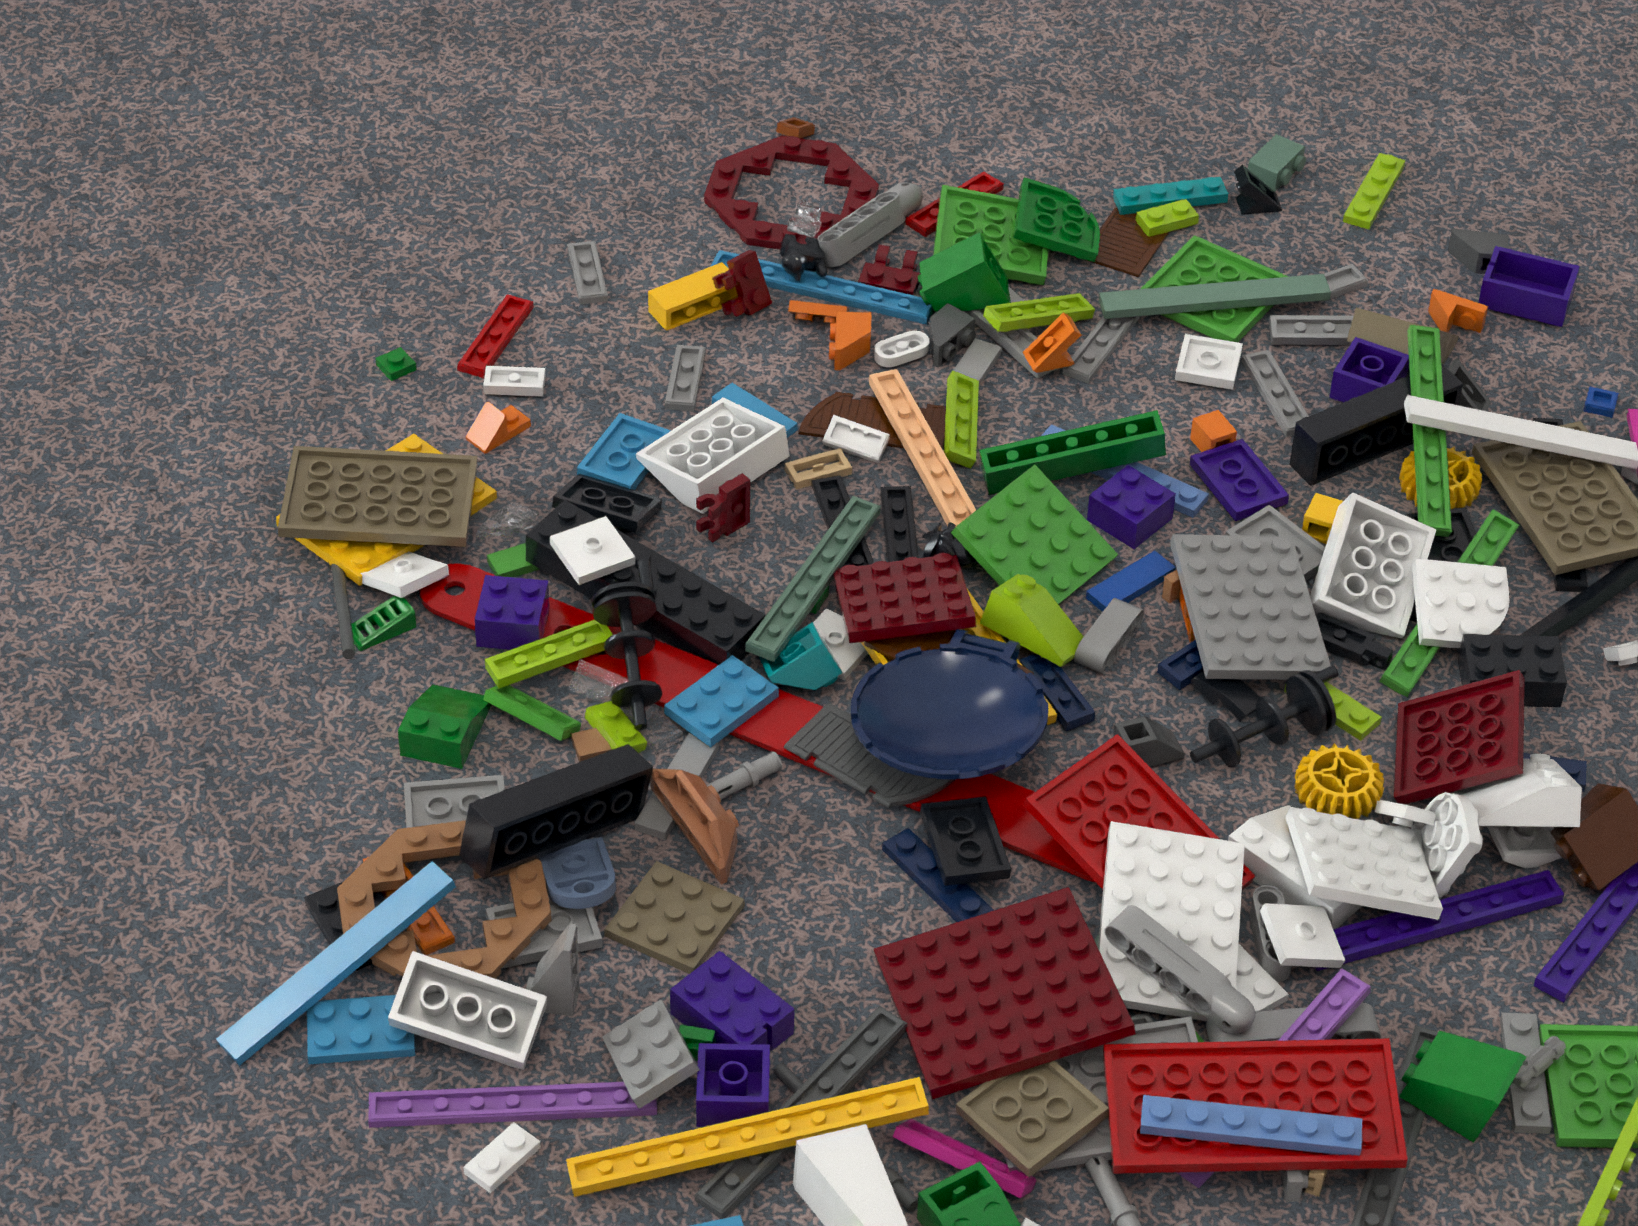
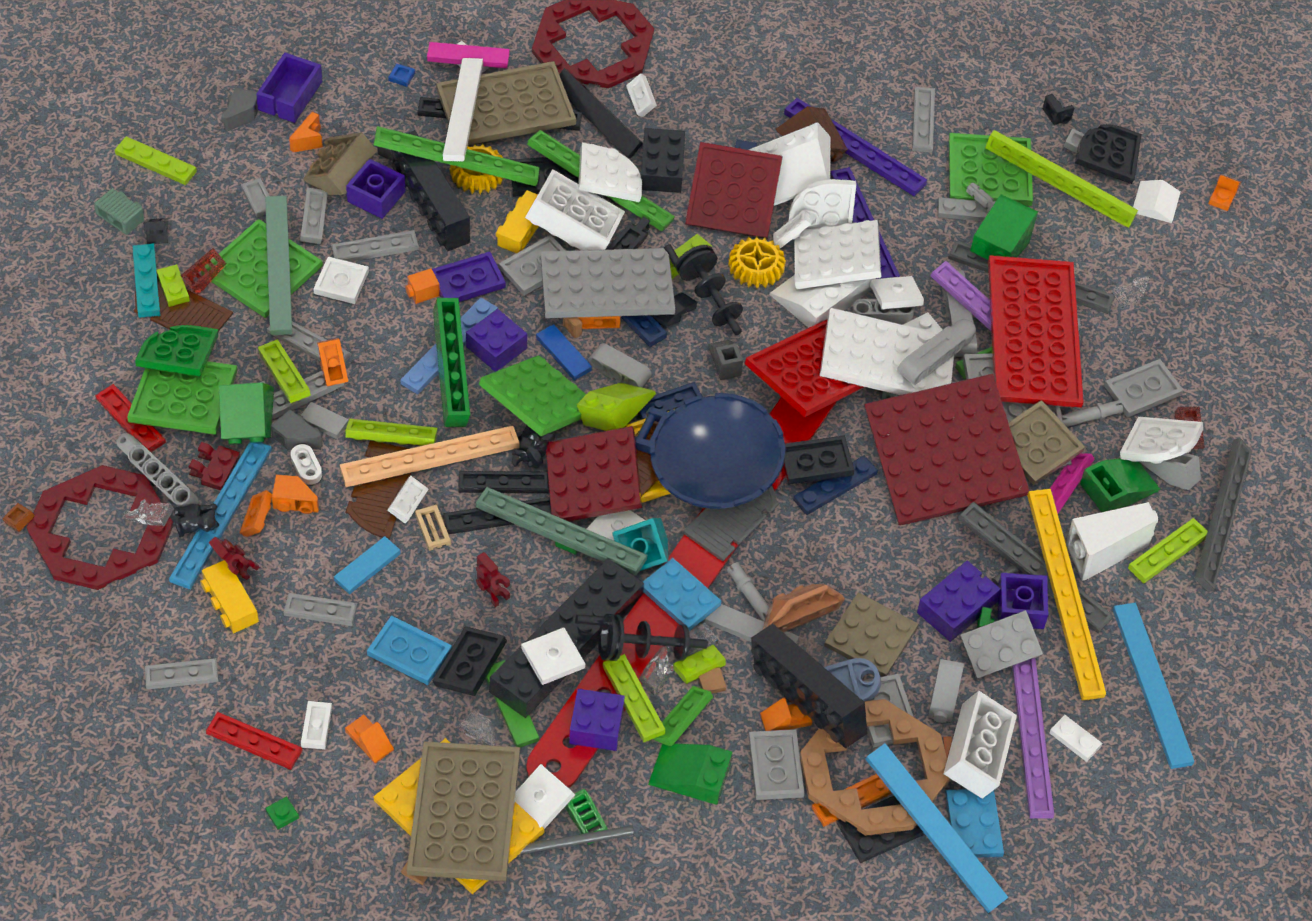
camera: 90 degrees left, 10 degrees up
(715, 449) = (422, 587): white slope -> none
(1184, 231) = (204, 280): none -> clear red slope
(1251, 1125) = (1056, 331): medium blue plate -> none

